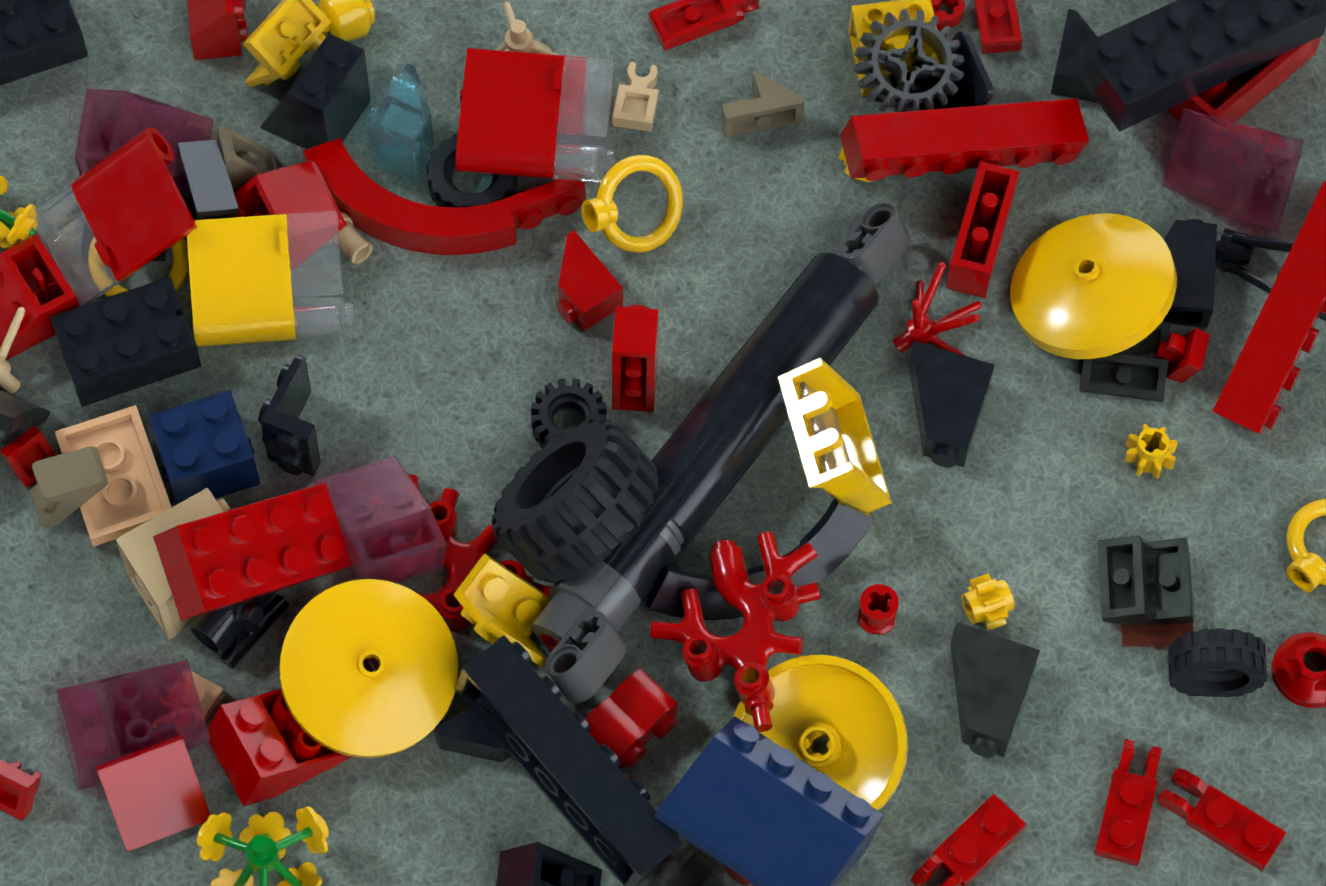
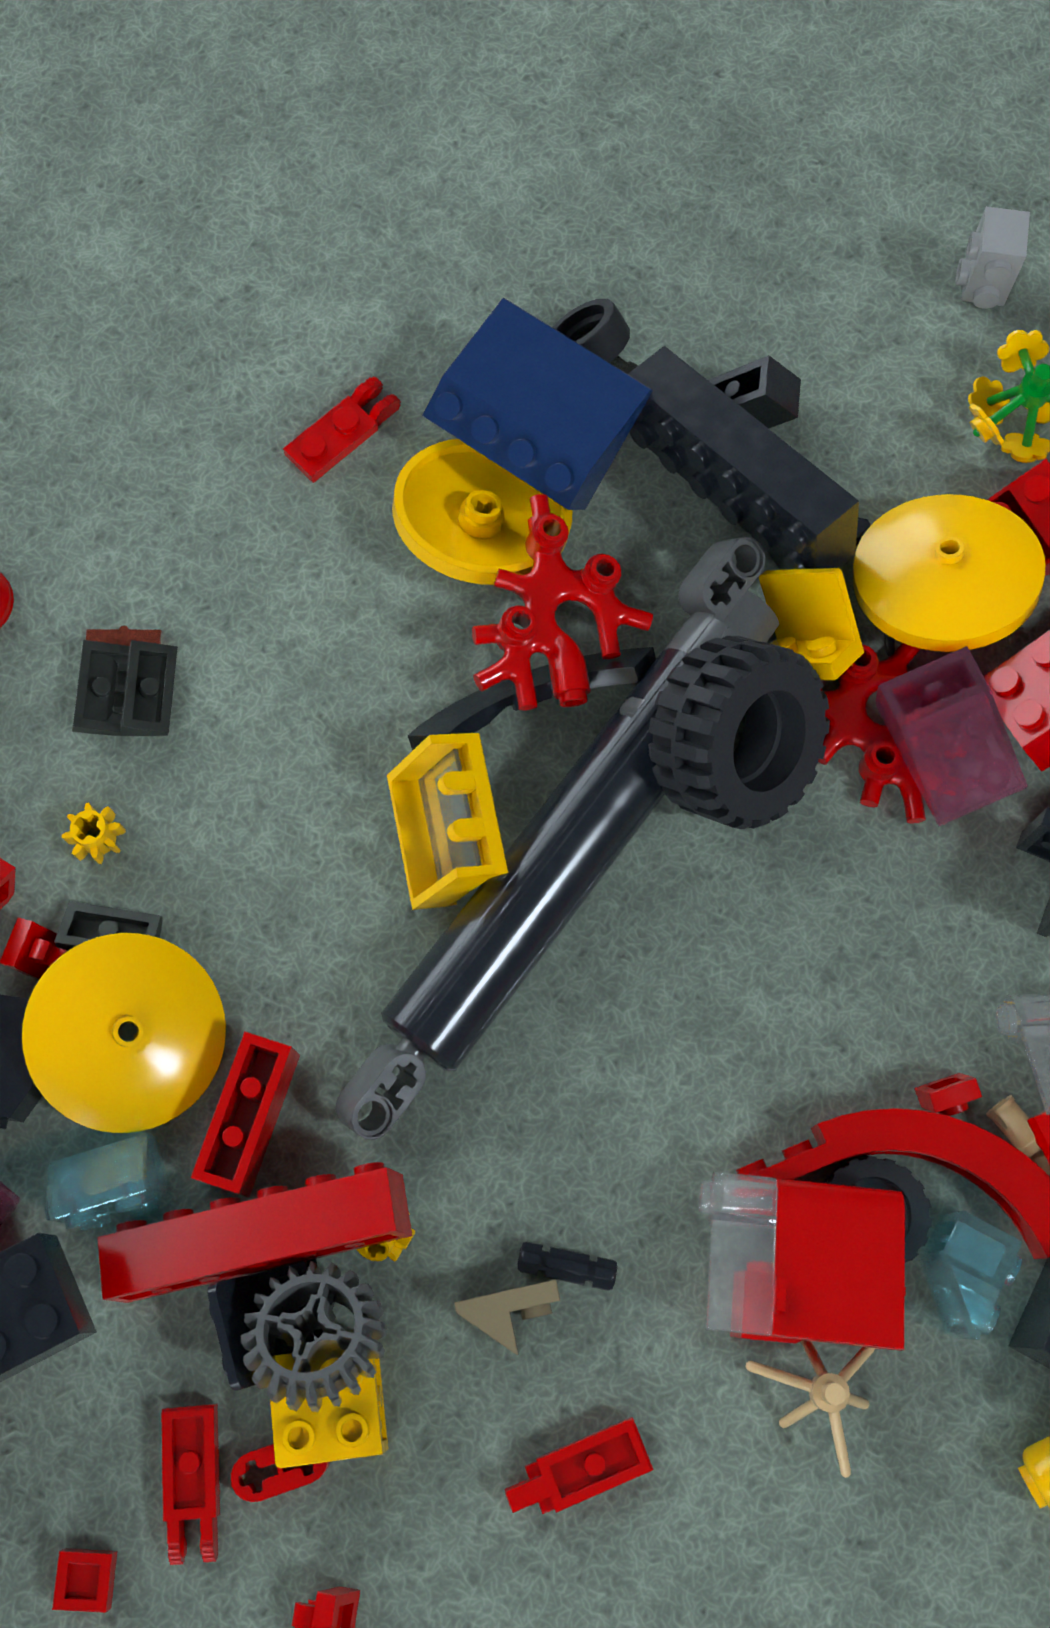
camera: 175 degrees left, 10 degrees up
(404, 259) = (949, 1094): none -> red plate
(563, 397) = (747, 857): black tyre -> none
(585, 286) = (729, 1053): red slope -> none
(602, 212) = (713, 1132): yellow piece -> none
(633, 717) = (671, 547): red brick -> none
(635, 358) = (673, 917): red brick -> none
(637, 101) = (669, 1324): tan plate -> none
(715, 142) = (567, 1266): none -> black axle
(879, 597) = (417, 645): red bush -> none
(923, 328) = (330, 993): red plant -> none
(947, 400) = (311, 894): black slope -> none
(988, 601) = (294, 662): yellow gear -> none
(990, 686) = (301, 575): pearl dark grey slope -> none
(1066, 79) = (90, 1383): black slope -> none
(1089, 176) = (106, 1181): none -> clear light blue slope
(1128, 808) = (180, 469): red hinge -> none
(1217, 663) = (64, 575): black tyre -> none
(1224, 820) = (88, 453): red hinge -> none

